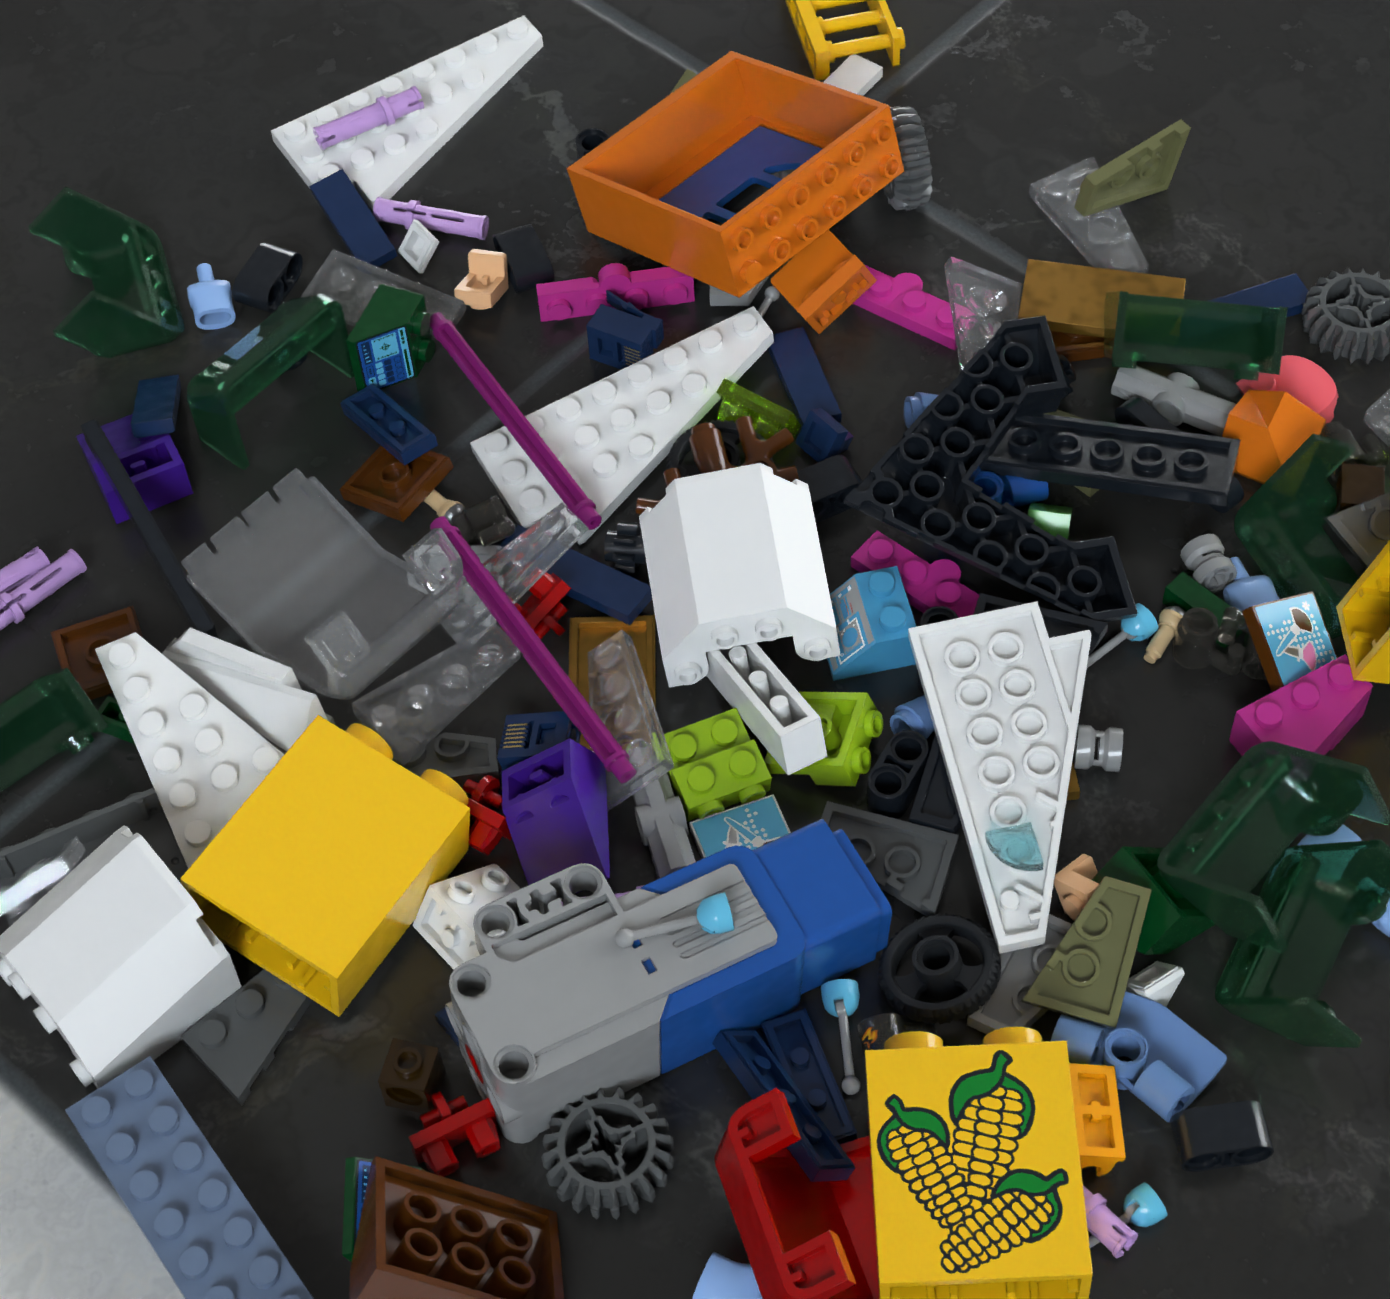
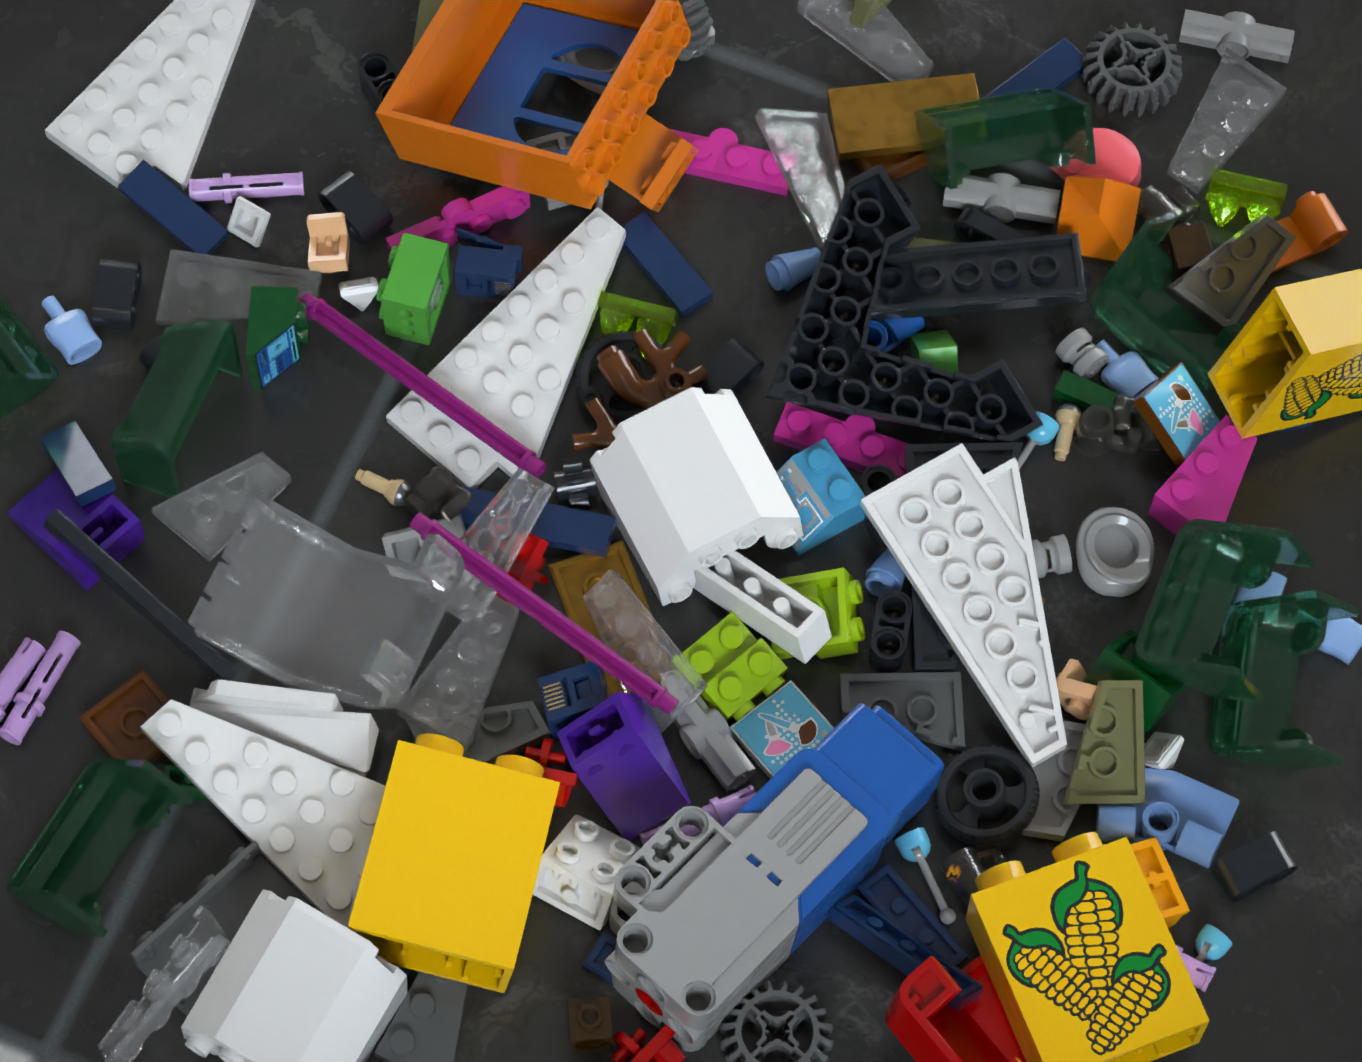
camera: 25 degrees left, 10 degrees up
(250, 478) = (212, 509): none -> clear wing
(369, 117) = (156, 85): lavender pin -> none
(389, 424) = (303, 419): dark blue tile -> none
(391, 487) = (333, 472): reddish brown tile -> none
(495, 331) = (359, 291): none -> white slope
(544, 333) = (414, 288): none -> bright green piece
(712, 916) = (811, 820): hinge -> none
(823, 436) = (705, 322): dark blue tile -> none
(1016, 847) = (1019, 674): clear light blue tile -> none
(1174, 763) = (1114, 551): none -> light grey piece

